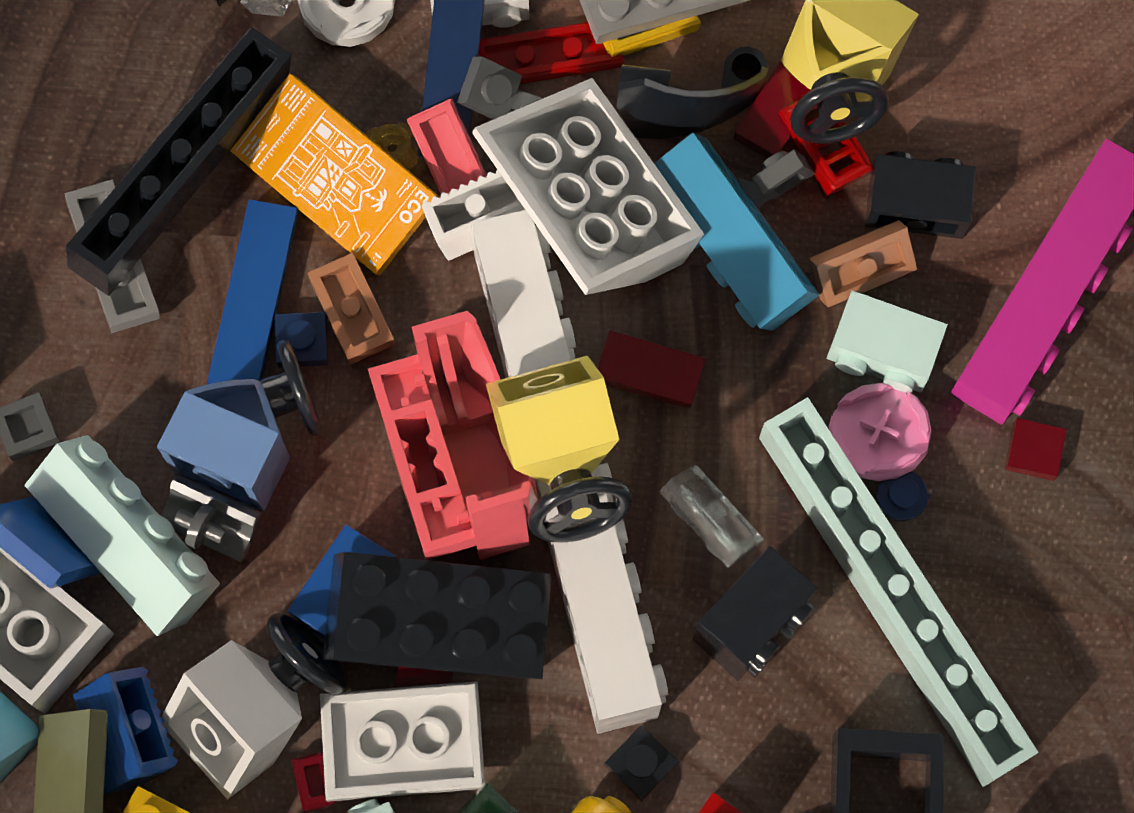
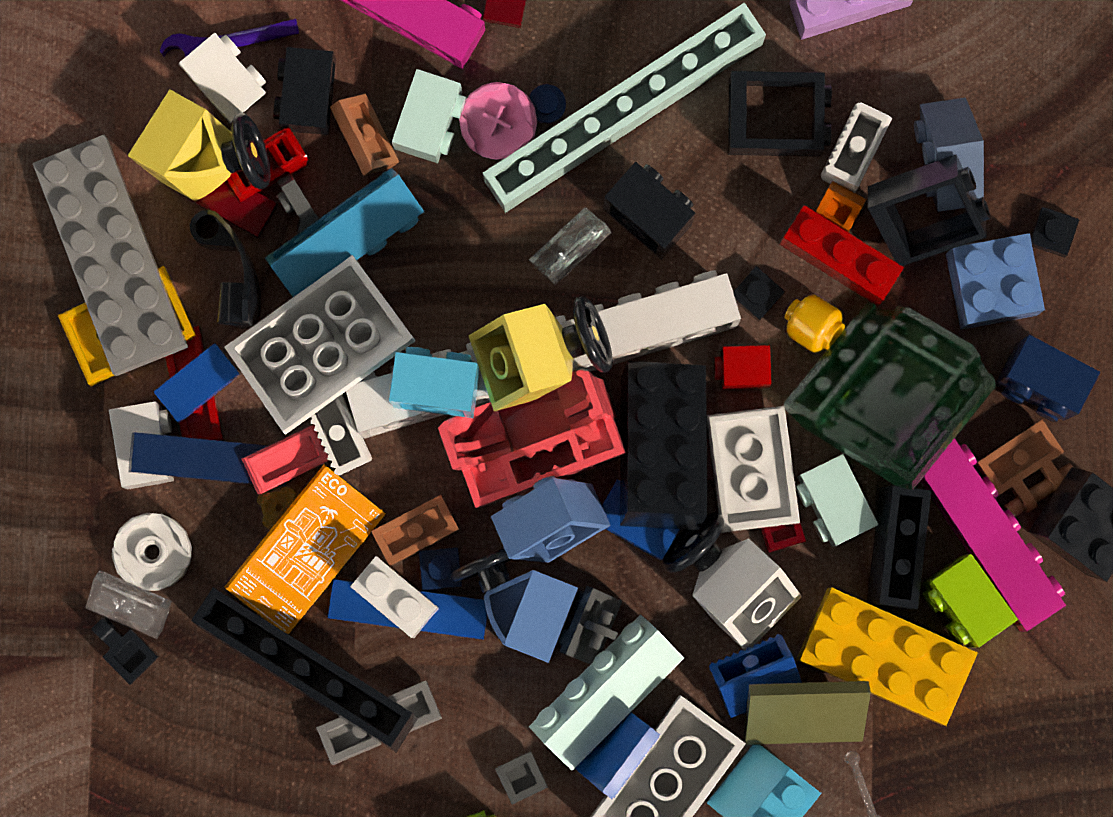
camera: 90 degrees left, 10 degrees up
(263, 272) = (394, 597): none -> white brick
(346, 462) = (549, 519): none -> medium blue brick
(493, 89) = (233, 425): dark grey plate -> none
(520, 304) = (434, 383): none -> medium azure brick
(540, 736) = (744, 367): none -> red brick
(549, 49) = (196, 383): none -> blue tile
(650, 369) = (454, 297): dark red tile -> none
(938, 93) = (223, 77): none -> white brick
(976, 72) = (241, 38): none -> dark purple piece

